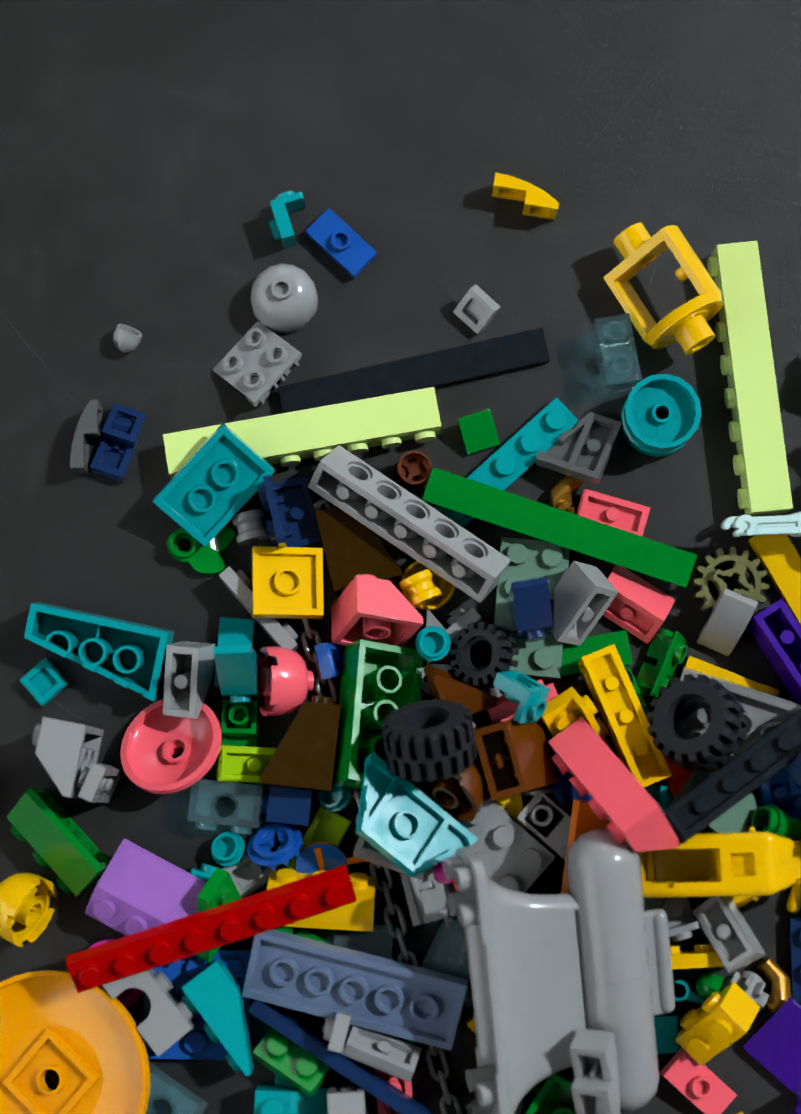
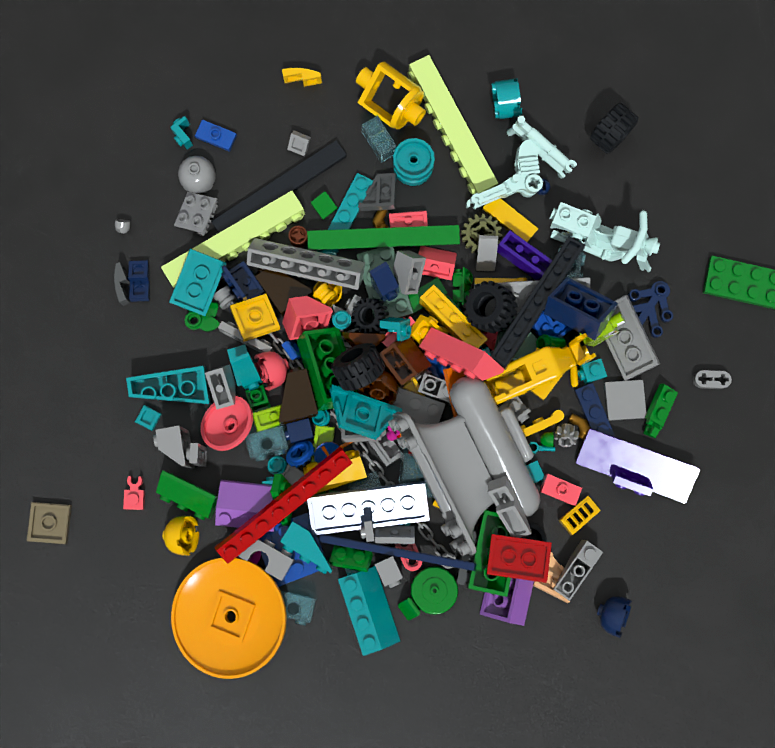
camera: 25 degrees left, 0 degrees up
(717, 1023) = (558, 454): yellow brick -> none
(728, 932) = (546, 407): light grey slope -> none

